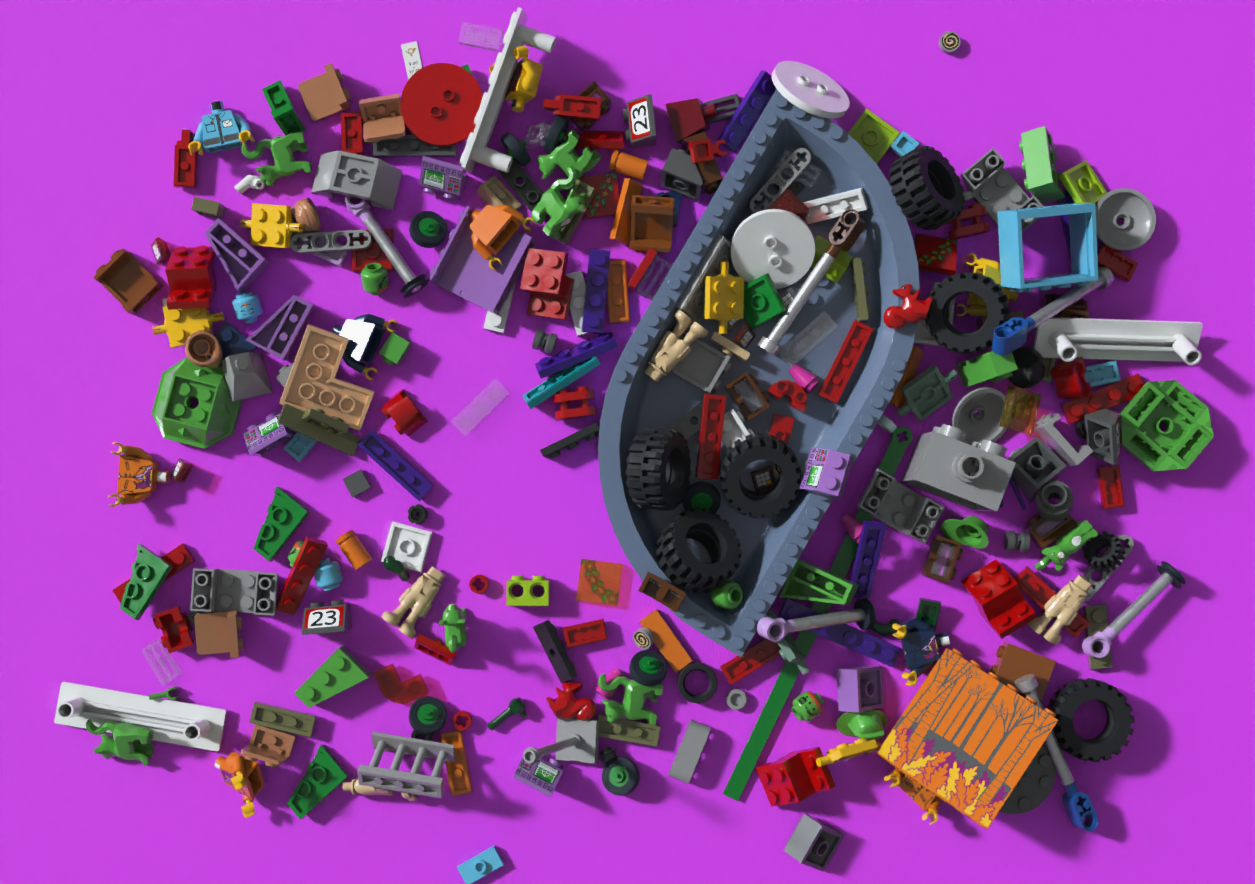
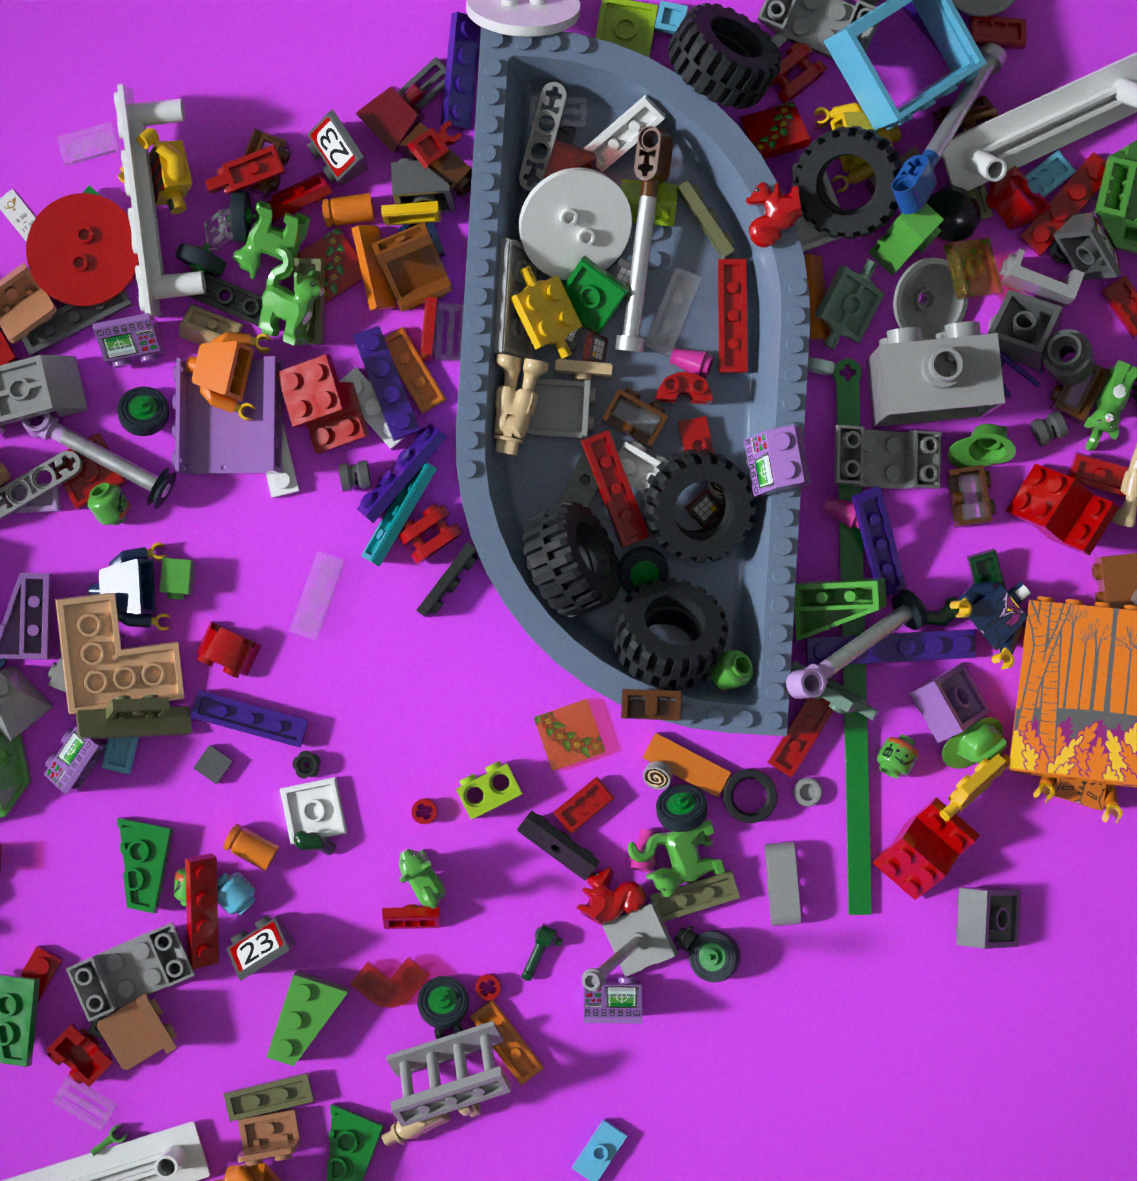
camera: 30 degrees left, 0 degrees up
(416, 598) = (359, 867): tan piece -> none
(668, 188) = (411, 213): none -> yellow tile

